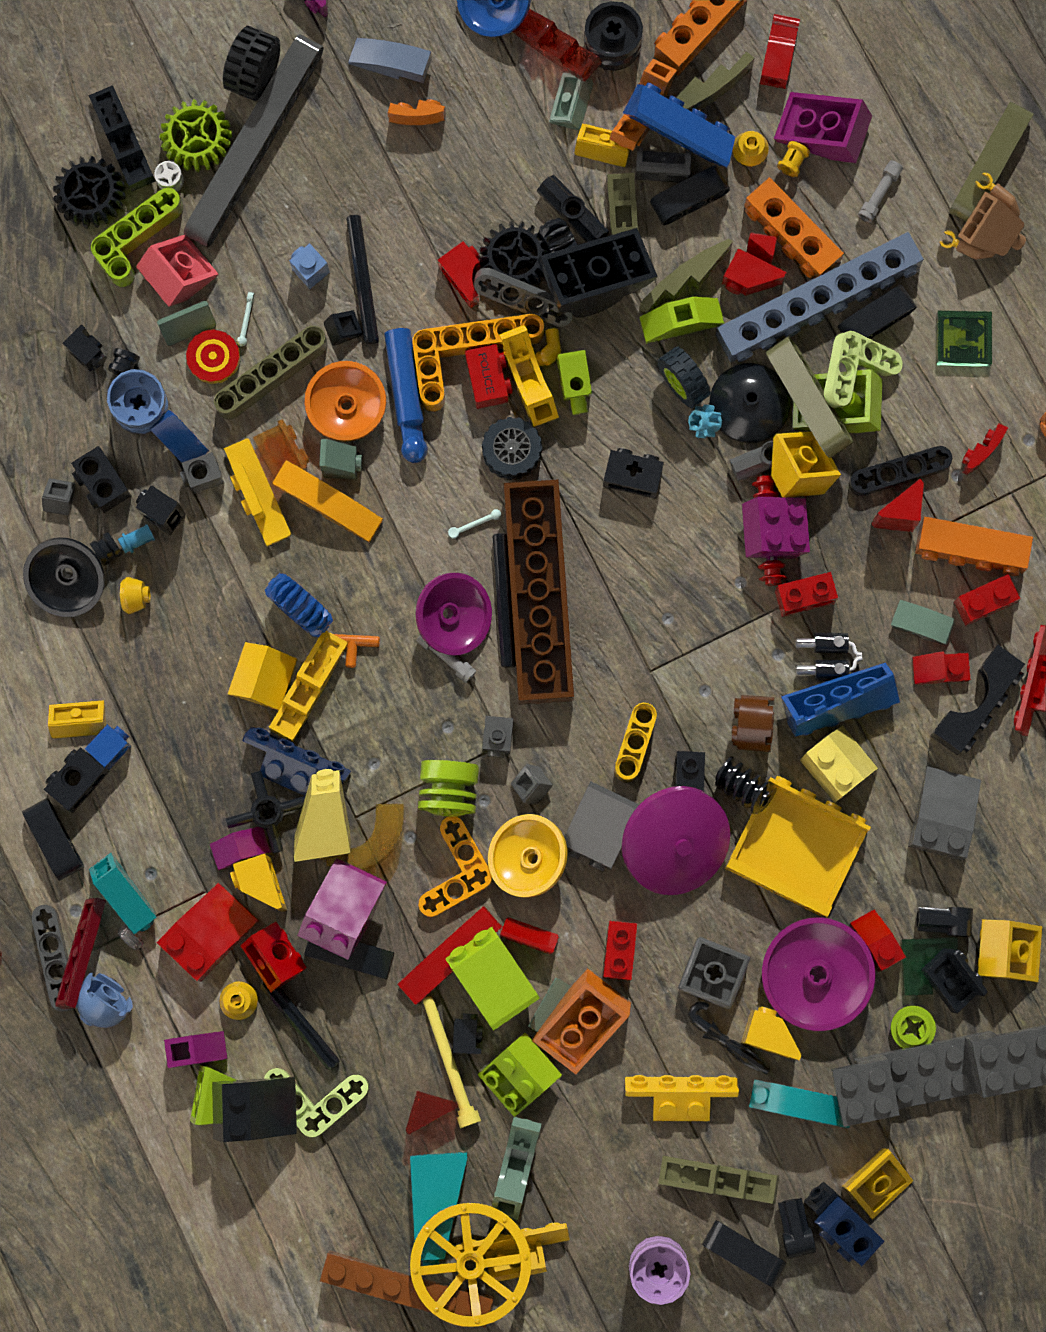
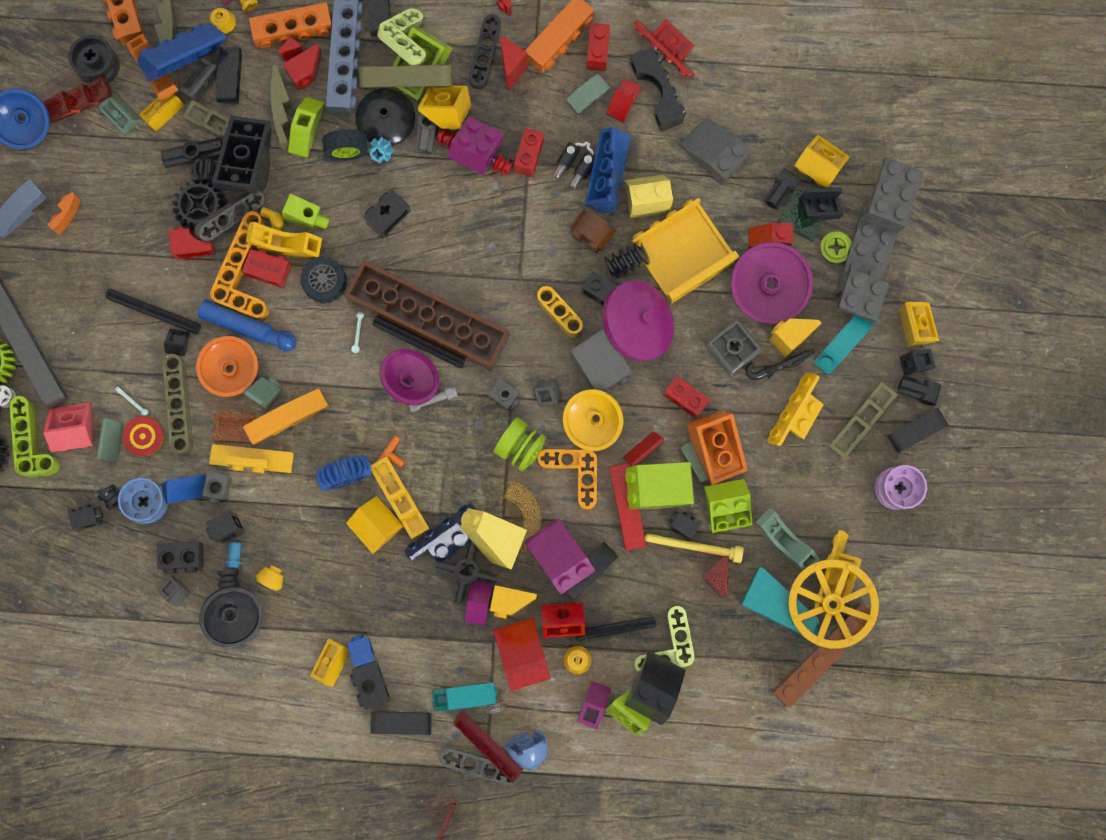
camera: 65 degrees left, 0 degrees up
(309, 265) = (122, 339): medium blue brick -> none
(849, 1231) = (941, 357): dark blue brick -> none

